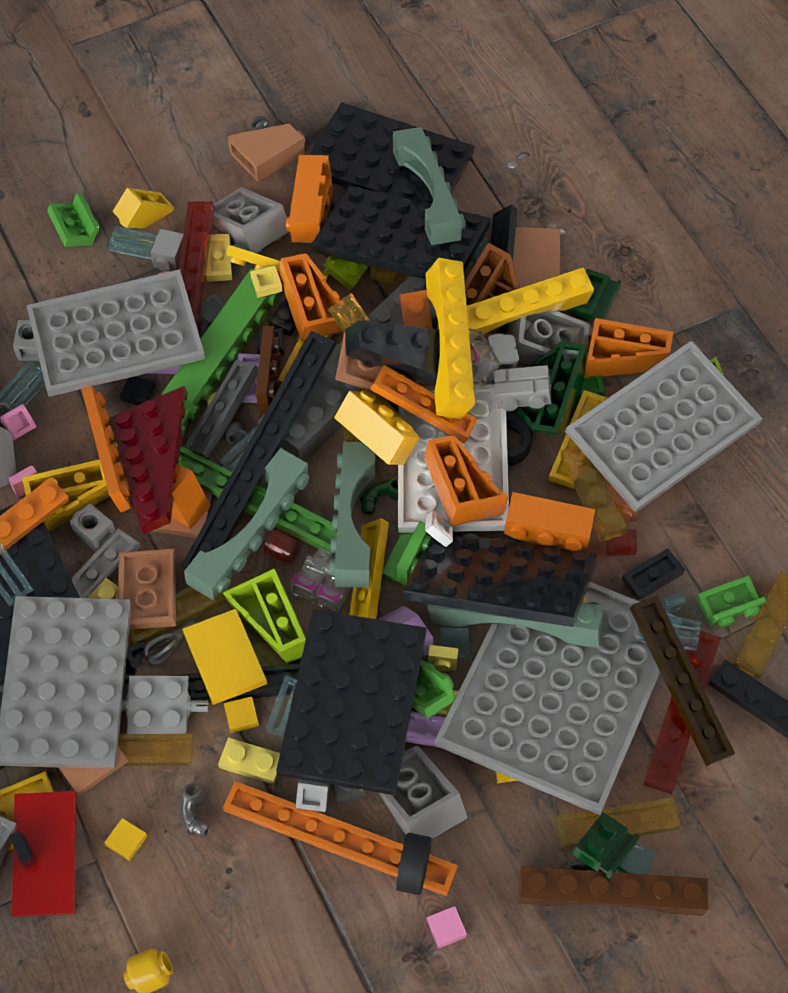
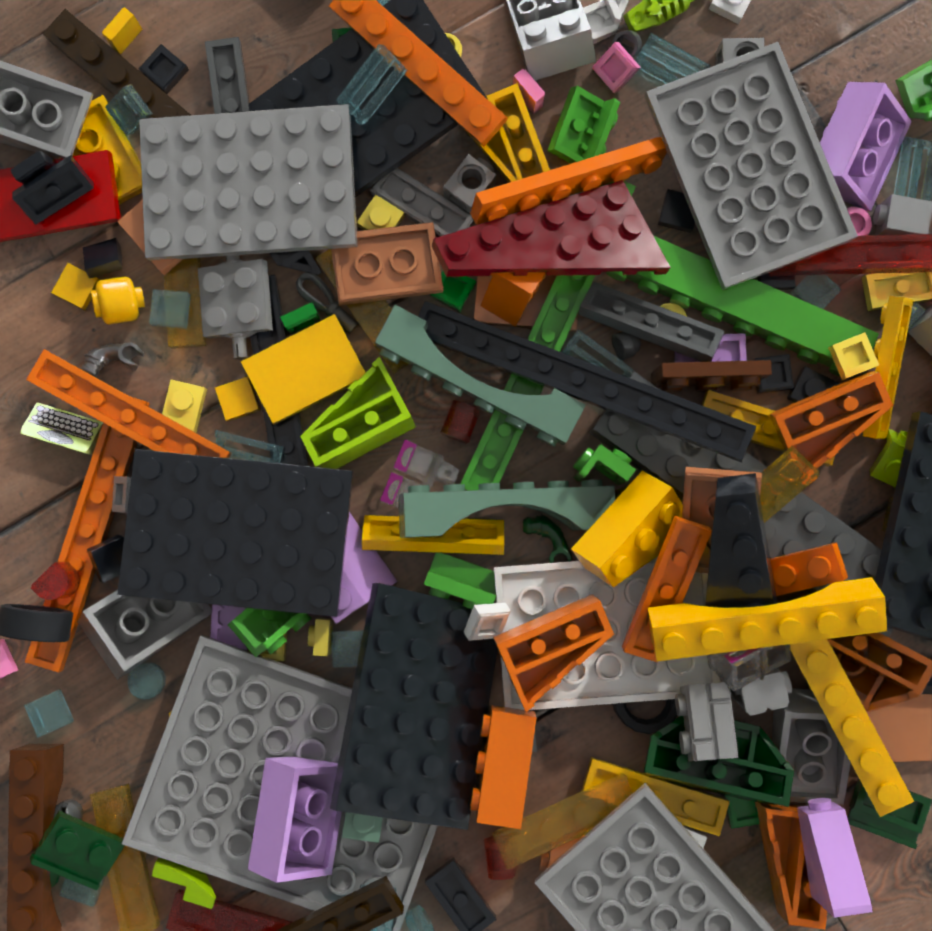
camera: 80 degrees right, 25 degrees up
(42, 835) = (53, 189): none -> black plate
(62, 444) = (583, 126): none -> bright green bracket
(101, 267) = (864, 140): none -> lavender slope
(105, 812) = (102, 258): none -> black tile
(144, 801) = (117, 300): none -> yellow head
(159, 755) = (169, 309): none -> clear light blue tile
(181, 546) = (455, 291): none -> green tile
(181, 656) = (300, 318): none -> green tile
(237, 799) = (118, 409): none -> orange plate
(249, 856) = (62, 428): none -> slope
(326, 445) = (609, 463): none -> bright green bracket
(365, 817) = (107, 558): none -> black tile
(381, 851) = (57, 582): none -> clear red brick
(473, 800) = (146, 681): none -> clear light blue tile
(493, 881) = (49, 713): none -> clear light blue tile
(583, 674) = (294, 820): none -> lavender slope
(620, 316) = (832, 859): none -> lavender slope
(637, 766) = (197, 884): none -> lime slope

